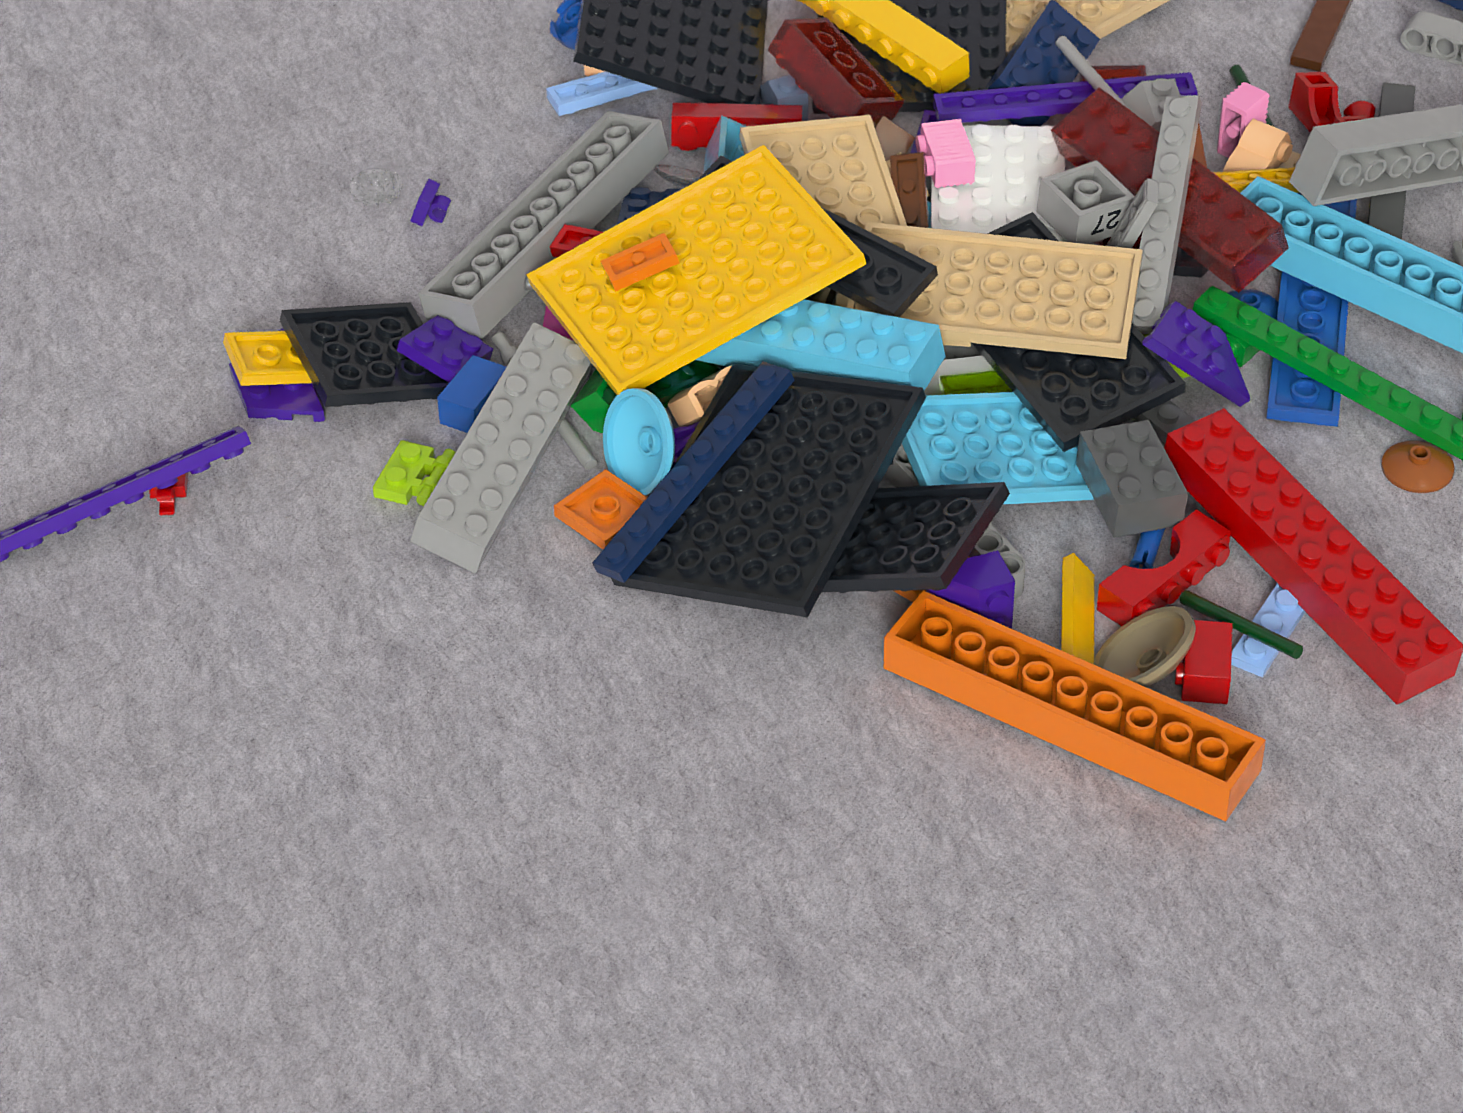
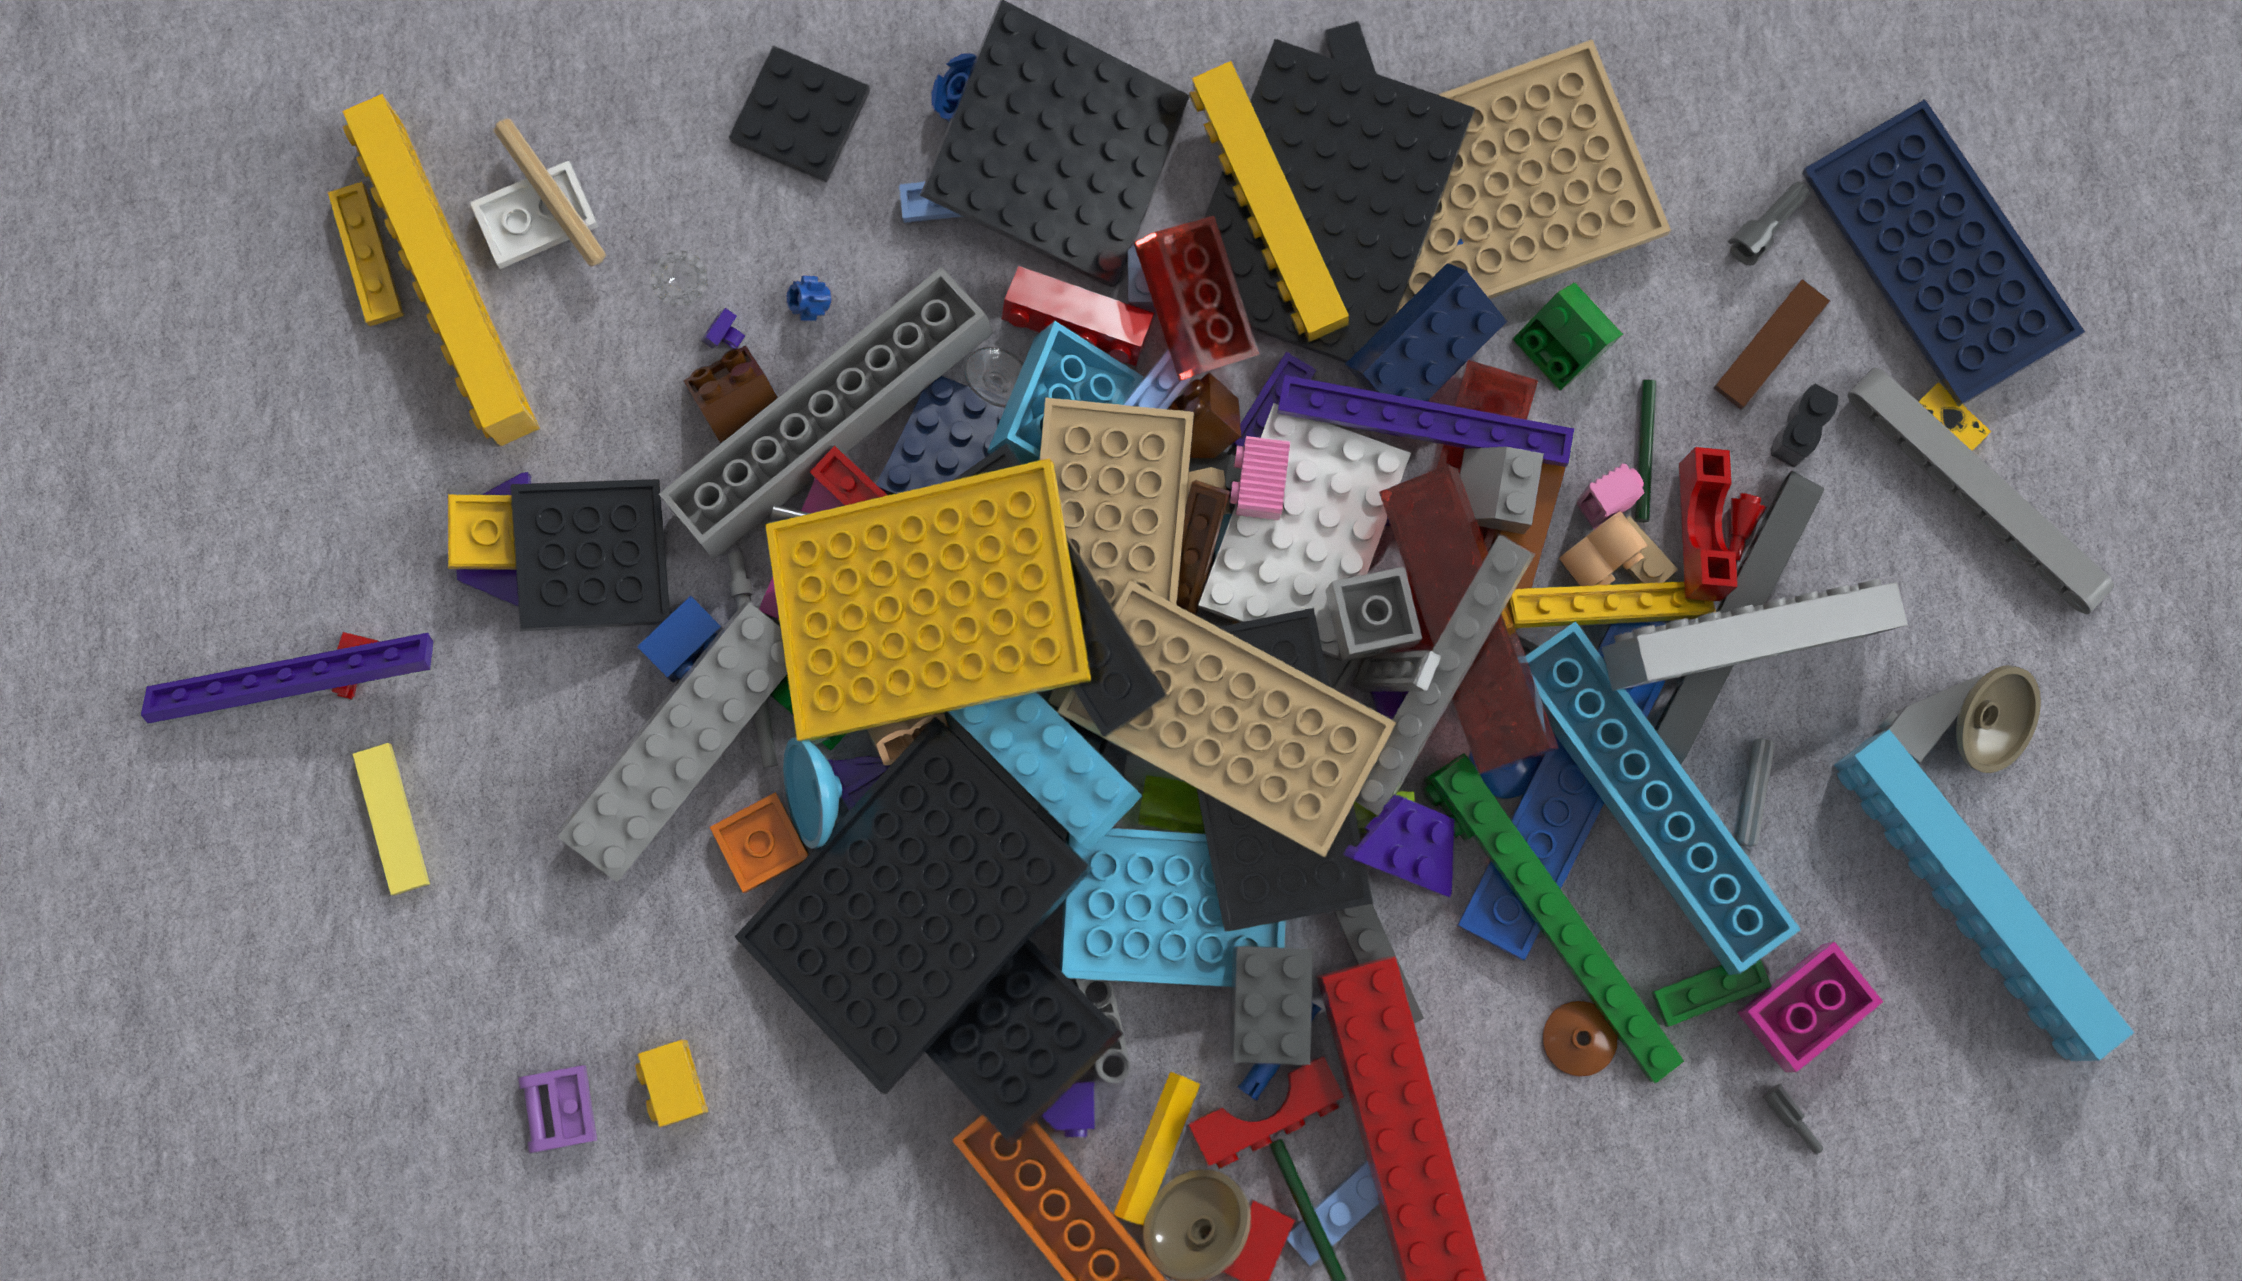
camera: 15 degrees right, 35 degrees up
(86, 230) = (365, 254): none -> yellow plate
(166, 214) = (439, 271): none -> yellow brick
(230, 175) = (521, 224): none -> white plate
(242, 149) = (549, 192): none -> tan axle
(243, 581) = (391, 819): none -> light yellow tile
(405, 472) = (585, 720): lime plate -> none
(440, 75) = (799, 113): none -> black plate
(442, 347) = (669, 567): dark purple plate -> none
(450, 233) = (730, 391): none -> reddish brown slope
(497, 167) = (808, 298): none -> blue gear
(499, 731) = (569, 1107): none -> medium lavender plate
(594, 688) = (671, 1083): none -> yellow brick
(639, 262) = (869, 580): orange plate -> none
(693, 472) = (849, 850): dark blue plate -> none
(1084, 67) = (1462, 409): light grey bar -> none
(1155, 45) = (1567, 336): none -> green slope
(1376, 57) = (1804, 425): none -> black brick

